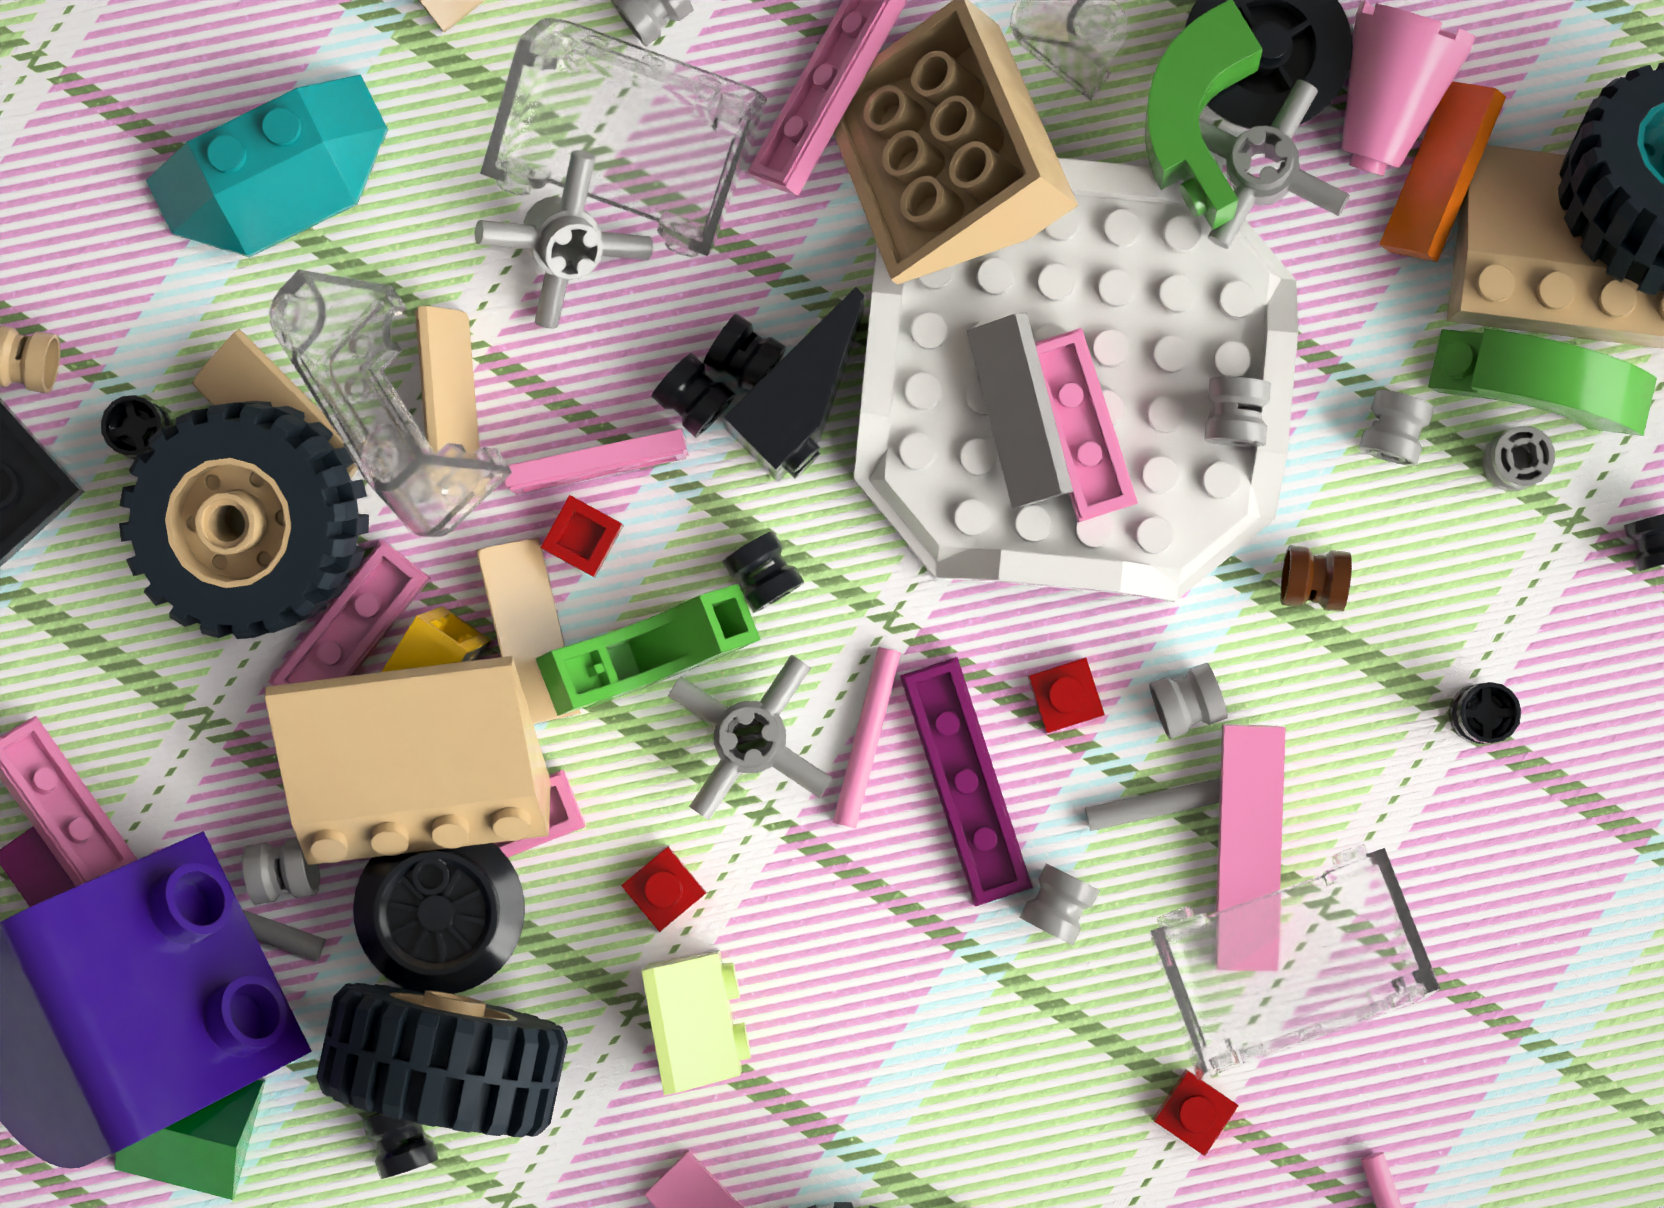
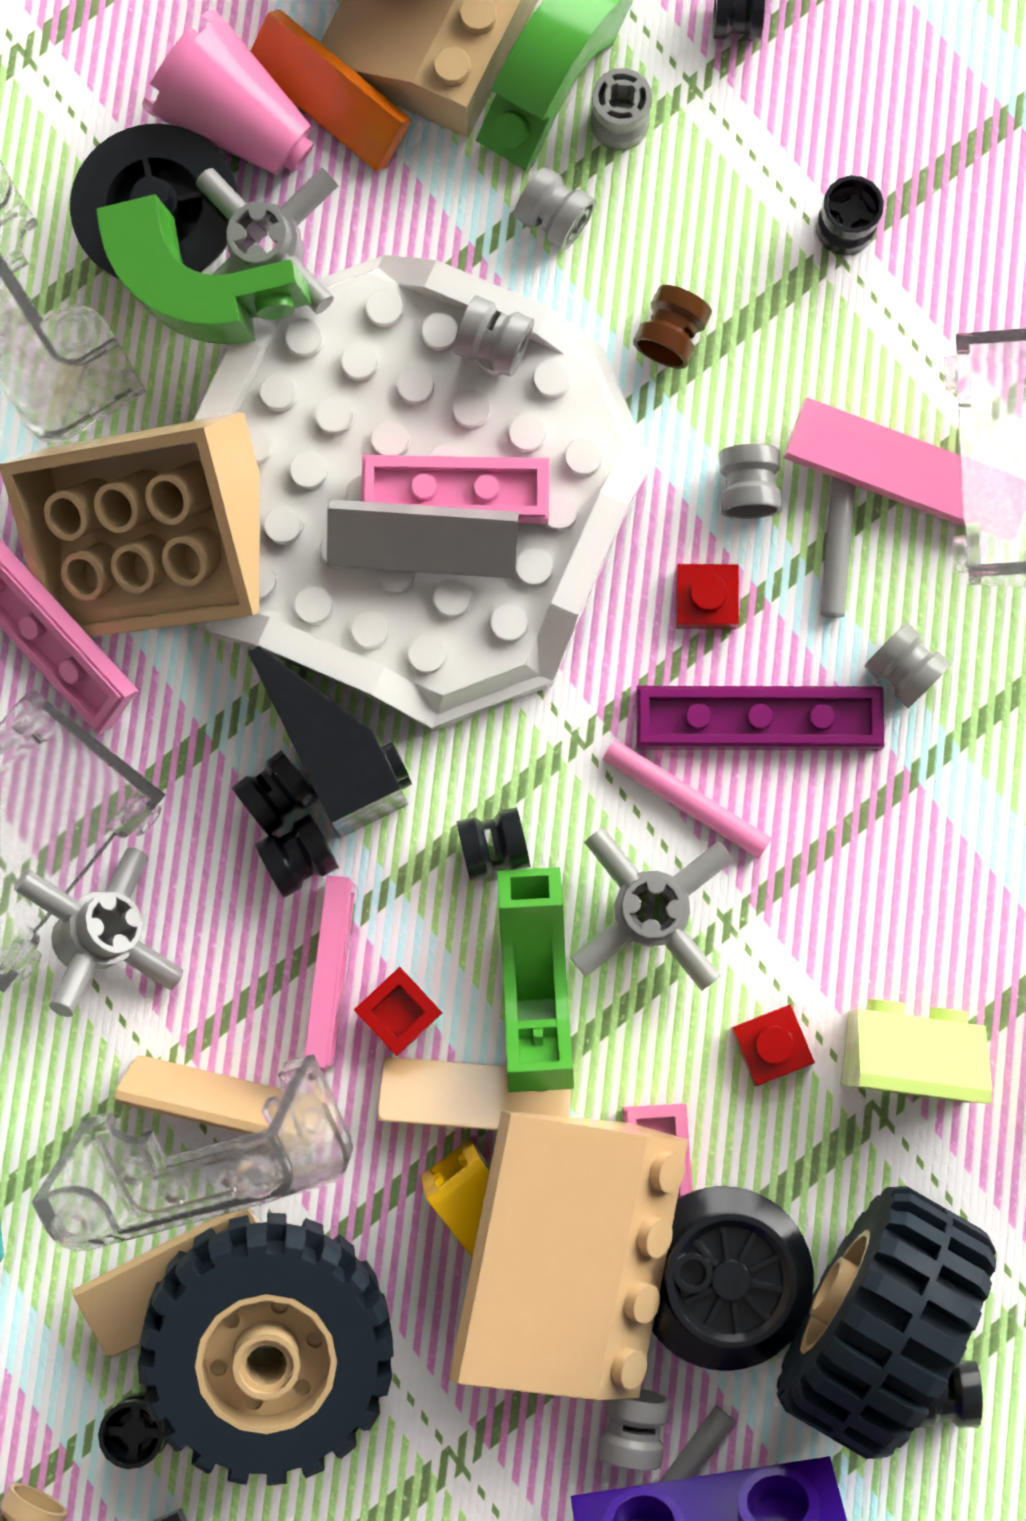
camera: 70 degrees left, 5 degrees down
(355, 619) = (406, 1271): bright pink tile -> none

